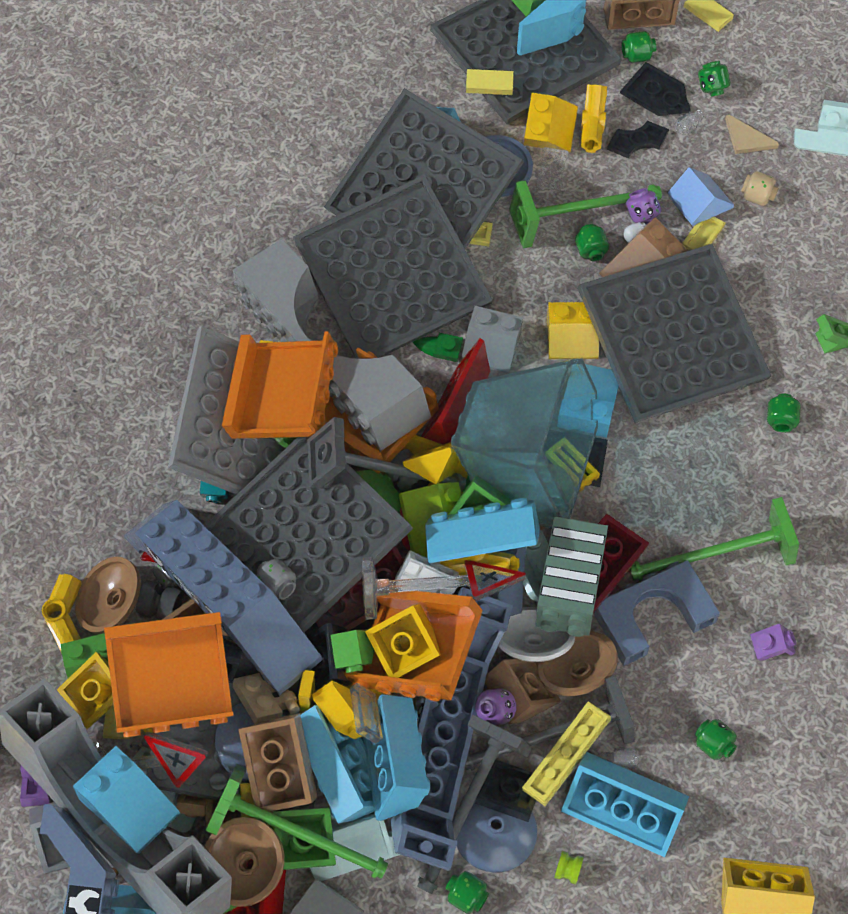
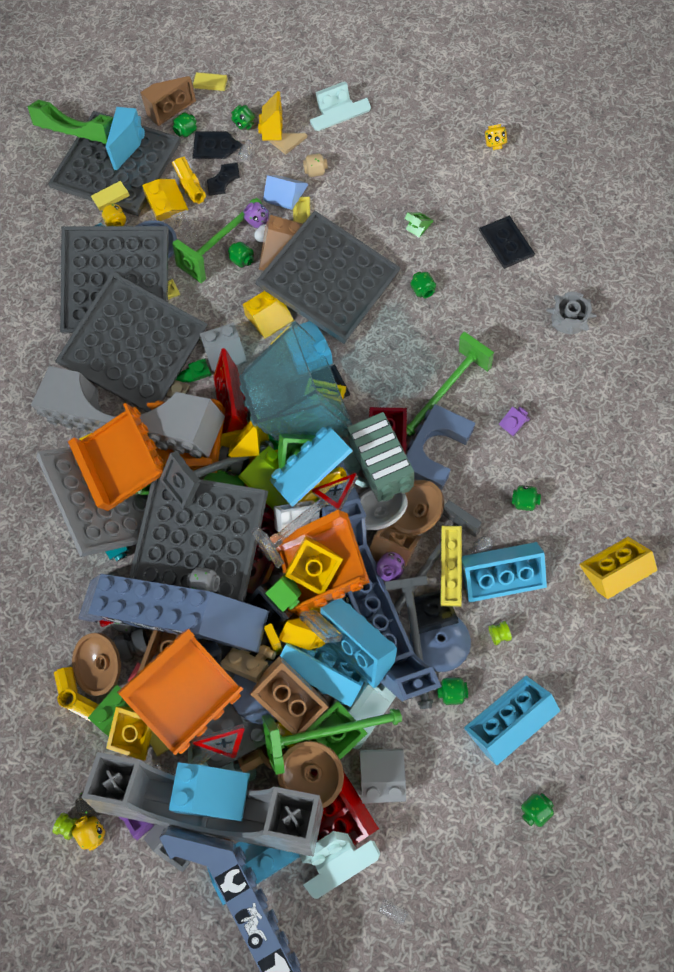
camera: 30 degrees left, 5 degrees up
(408, 355) = (179, 387): none -> dark tan plate
(477, 109) = (113, 215): none -> yellow head
(746, 102) = (271, 119): none -> yellow slope

